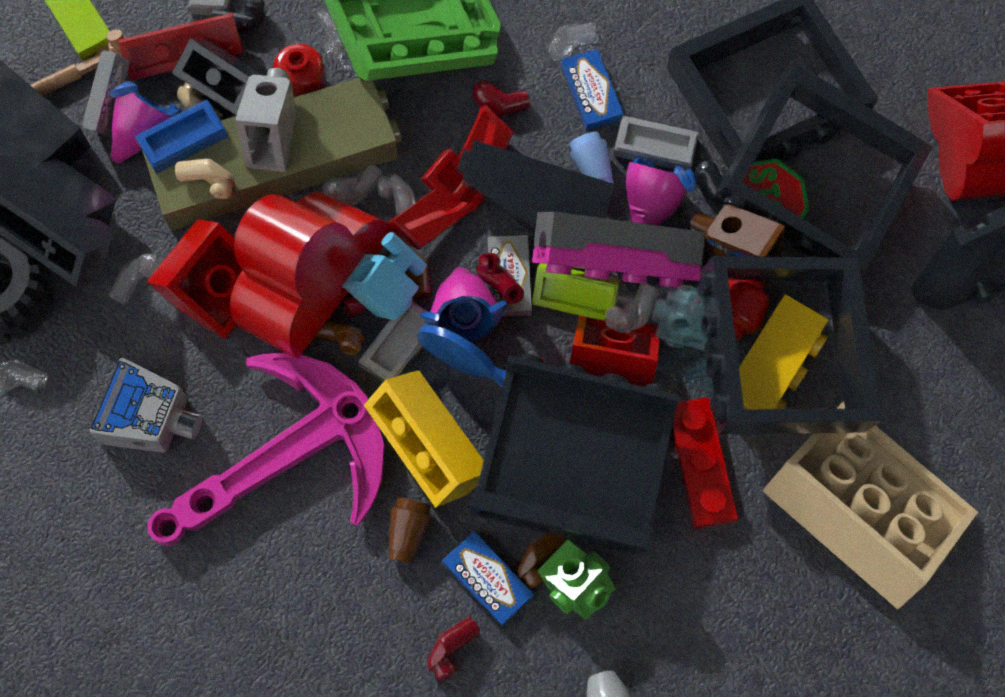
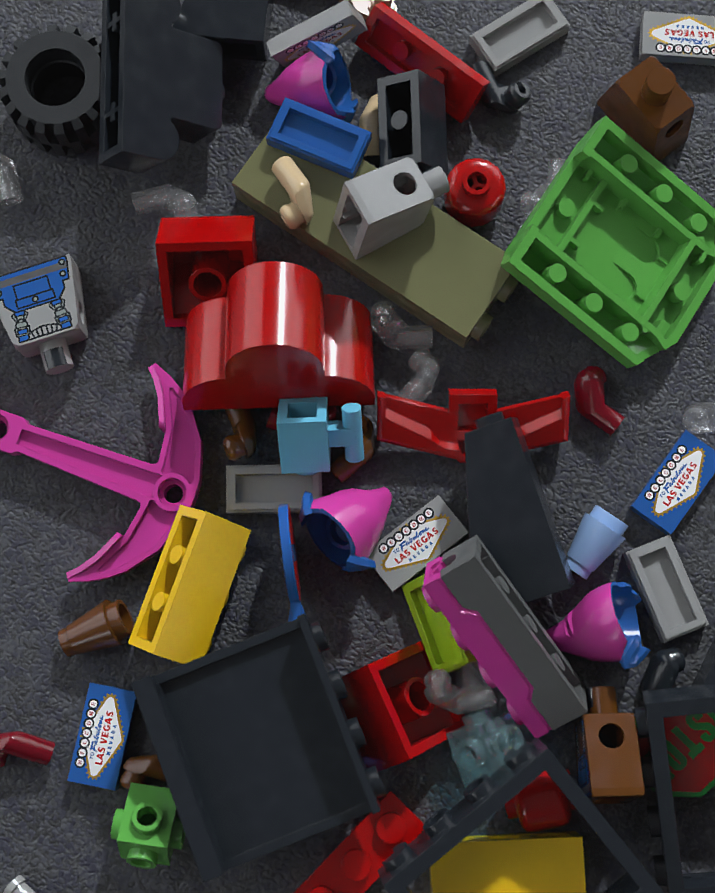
camera: 60 degrees right, 10 degrees up
(499, 278) = (398, 540): dark red arm -> none

